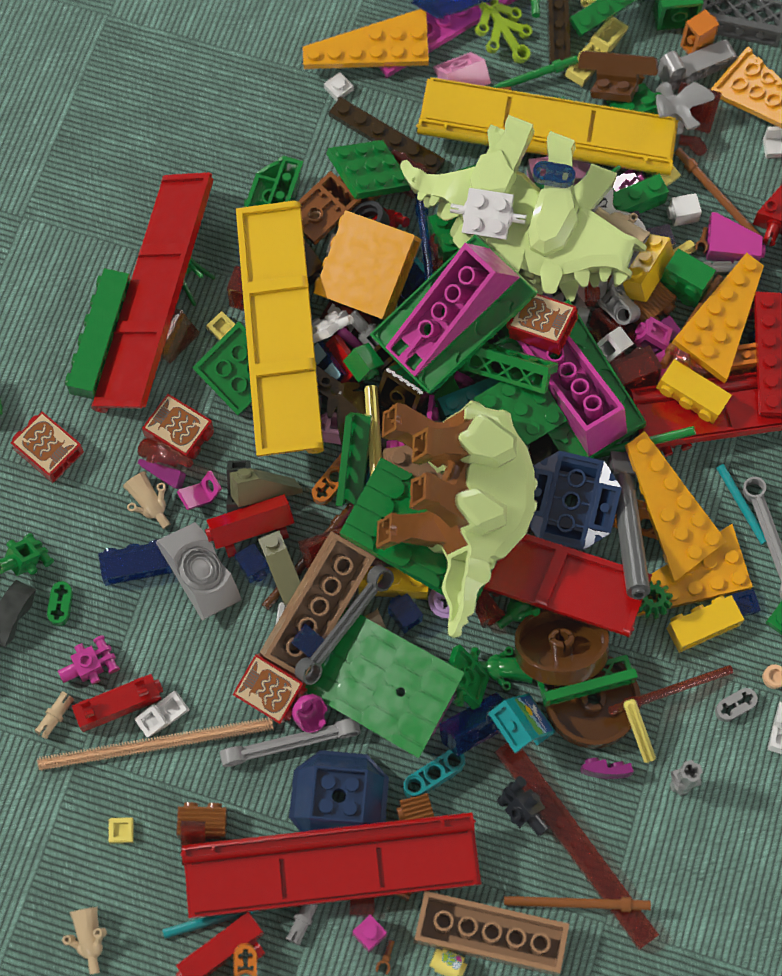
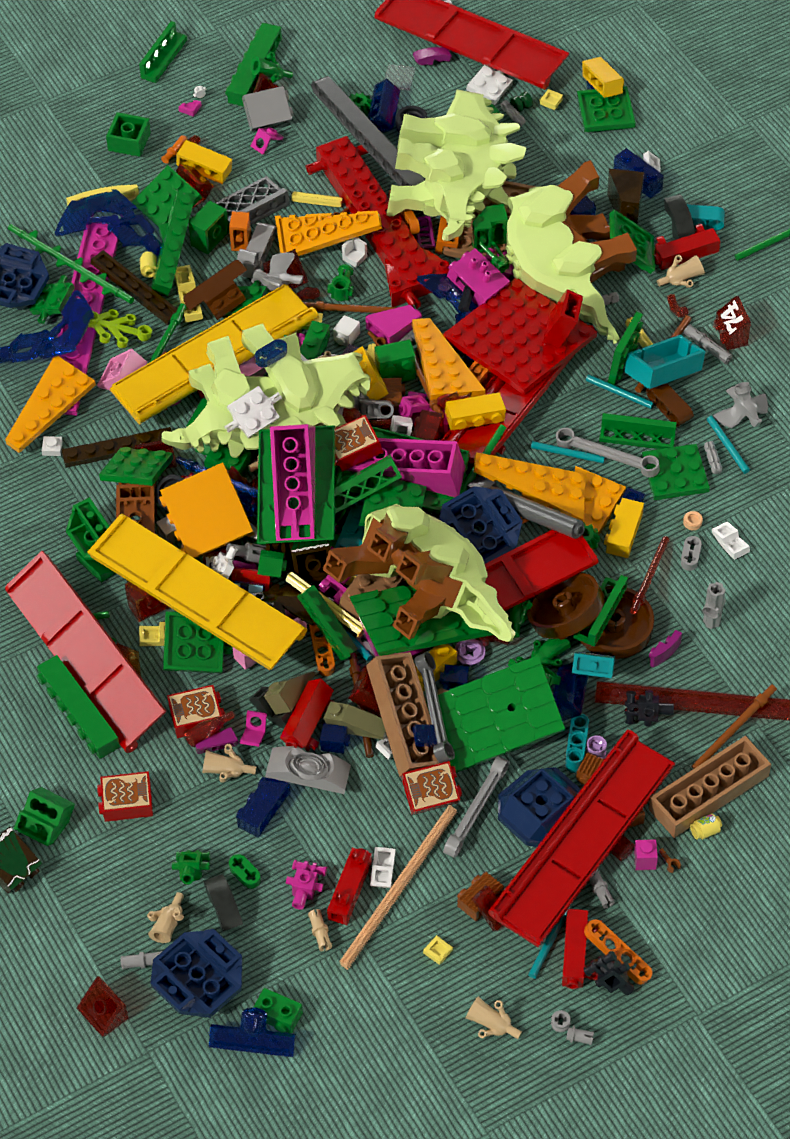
camera: 45 degrees left, 15 degrees down
(309, 713) = (468, 777): dark pink hair -> none
(443, 792) = (597, 746): none -> lavender wheel
(639, 730) = (659, 609): light yellow axle -> none
(733, 161) = (341, 285): none -> green connector

